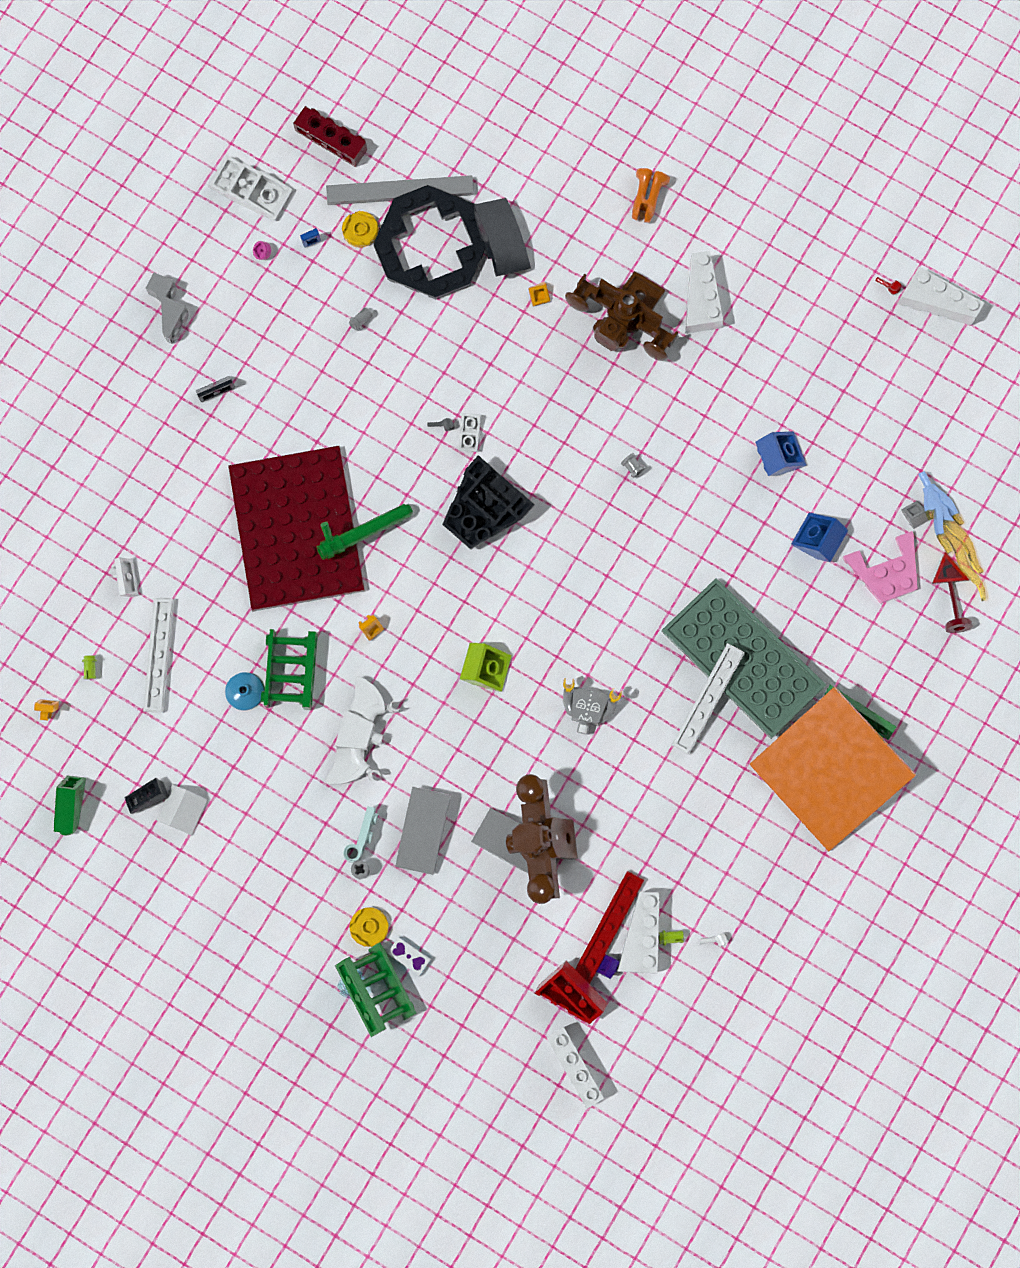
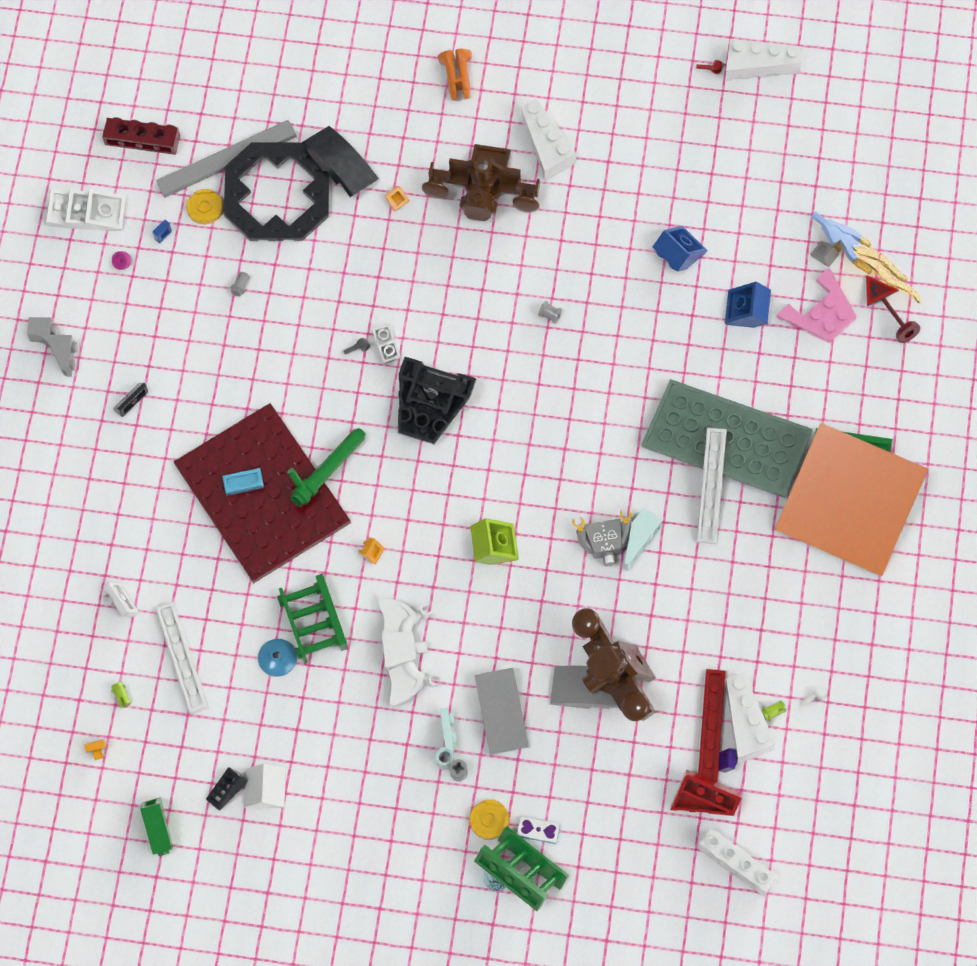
camera: 20 degrees left, 10 degrees down
(281, 512) = (243, 481): none -> medium azure tile
(625, 714) = (642, 531): none -> light aqua slope

